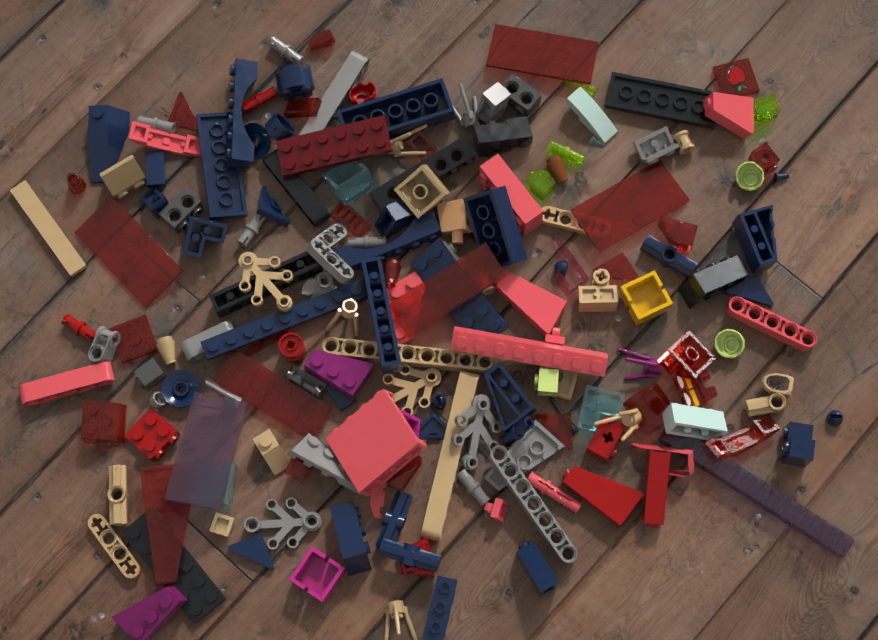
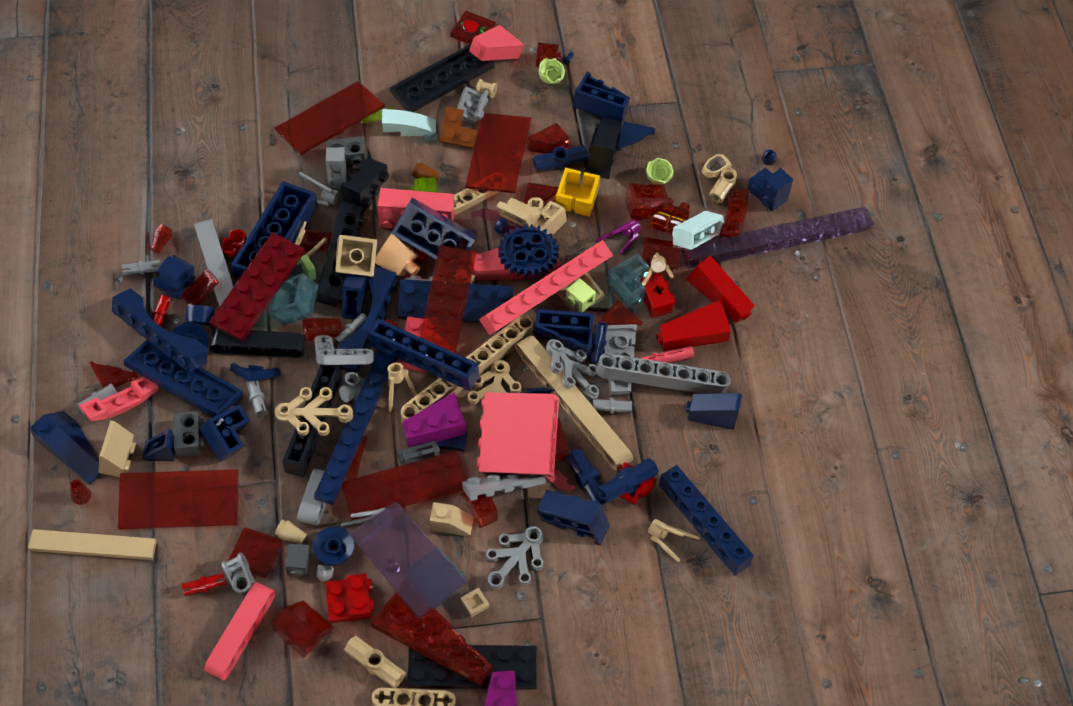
camera: 55 degrees left, 15 degrees down
(155, 169) = (134, 425): dark blue tile -> none
(253, 549) = (517, 595): dark blue tile -> none
(292, 348) = (383, 440): red wheel -> none
(317, 575) = (582, 563): dark pink piece -> none
(391, 163) = (308, 267): none -> yellowish green tile
(434, 403) = (523, 381): dark blue hinge -> none
(497, 510) = (643, 403): coral tile -> none
(535, 323) = (524, 257): none -> dark blue gear
(566, 152) = (407, 162): clear neon green pin -> none
(580, 272) = (518, 212): none -> tan panel
(615, 154) = (453, 132): none -> dark orange plate
(682, 473) = (725, 269): coral piece -> none
(765, 108) = (514, 25): clear neon green brick -> none
(780, 324) = (668, 139): coral beam -> none

